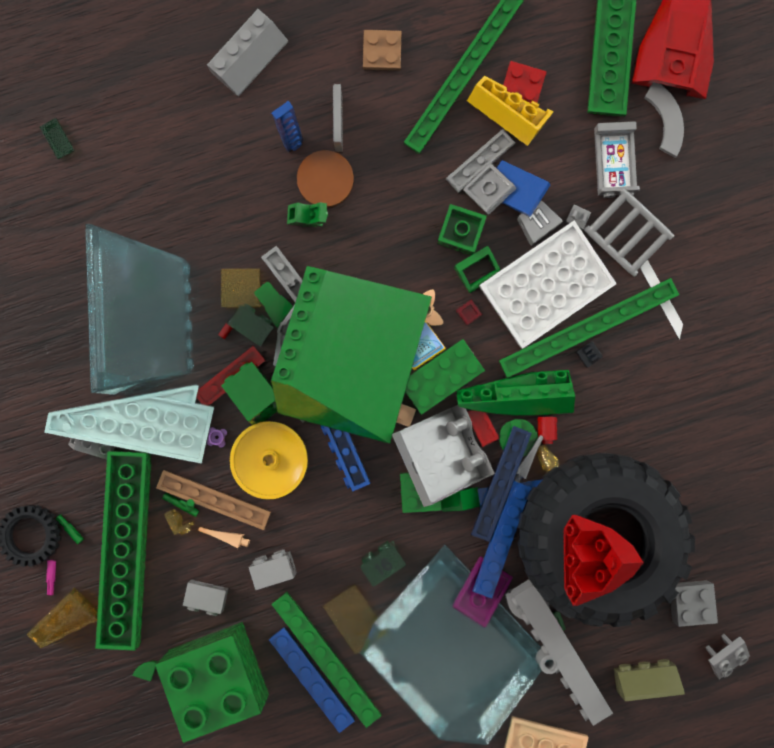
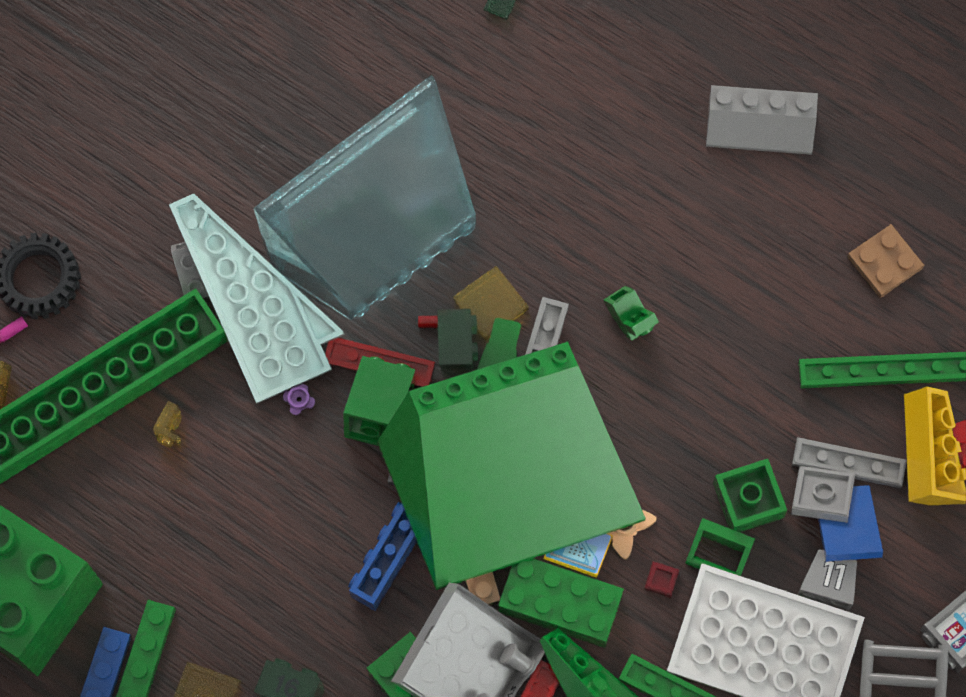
camera: 55 degrees right, 15 degrees down
(72, 532) = (74, 316): green piece -> none
(187, 507) = (194, 421): green hose -> none
(205, 597) = (103, 518): light grey brick -> none
(213, 499) = (224, 448): medium nougat plate -> none
(231, 538) = (194, 504): light nougat piece -> none
(268, 460) = (315, 473): yellow dish -> none
(273, 569) = (190, 568): light grey brick -> none
(288, 126) = (707, 213): blue plate -> none
(325, 178) = (689, 304): dark orange tile -> none
(337, 118) = (766, 266): light grey tile -> none
(579, 215) = (875, 624): light grey tile -> none

